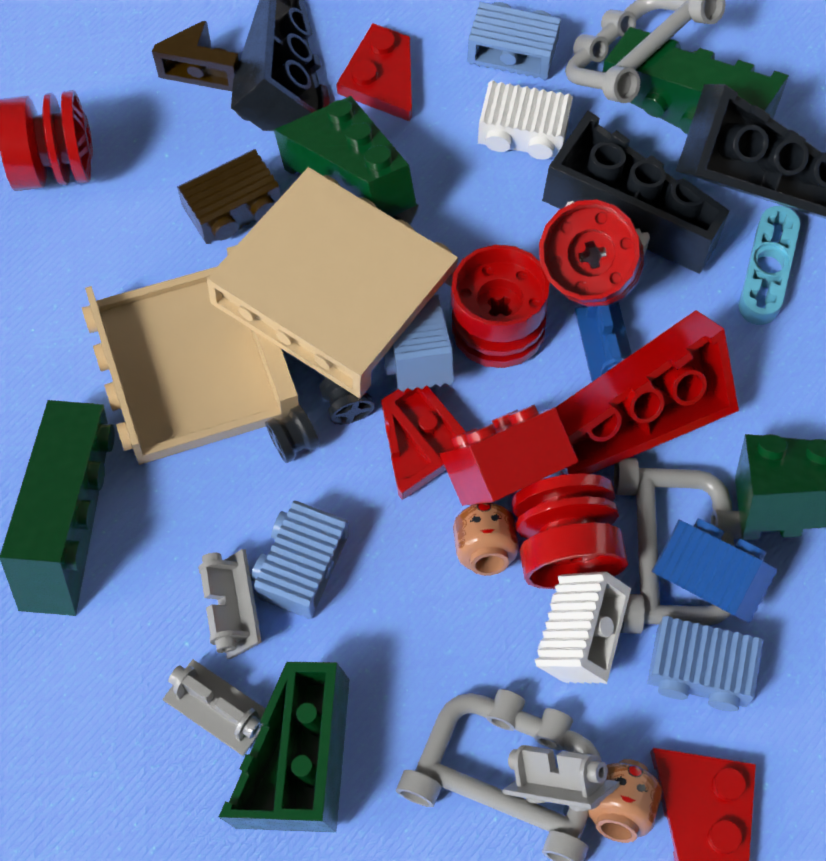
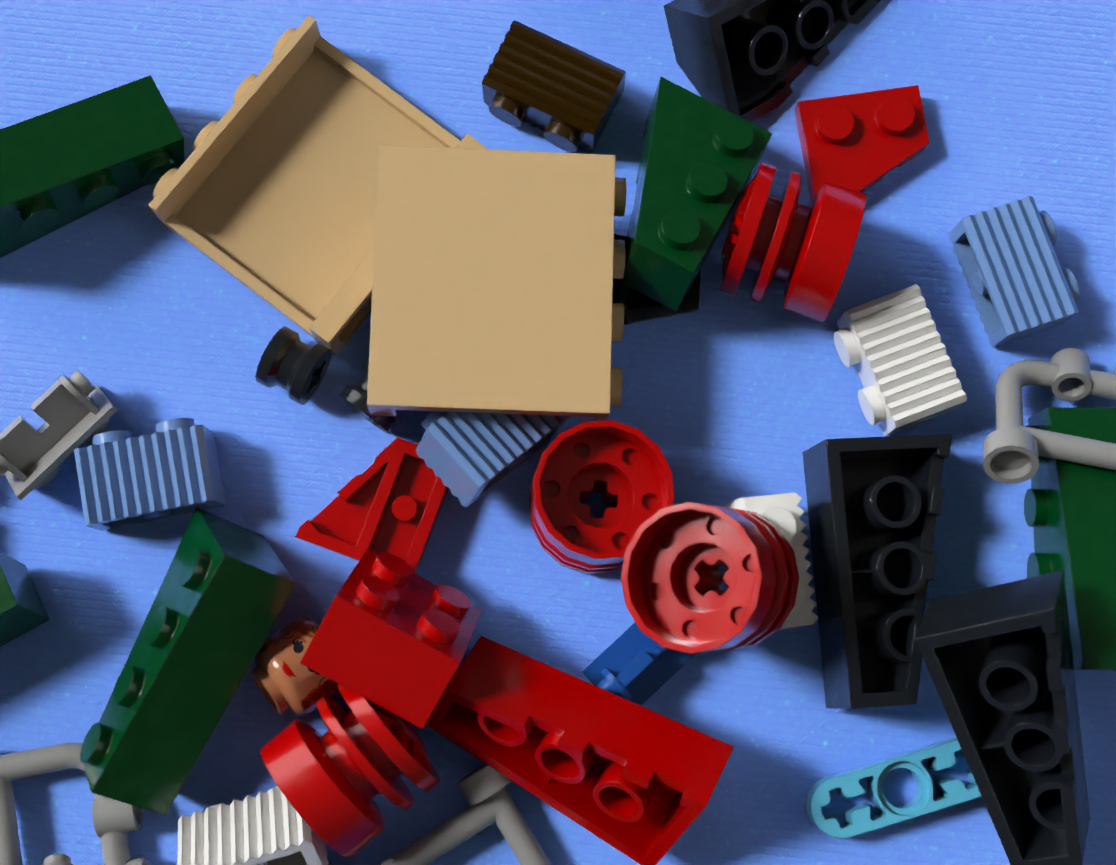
camera: 55 degrees right, 15 degrees up
(425, 120) = (792, 242): none -> red wheel
(438, 592) = (186, 662): none -> dark green wedge

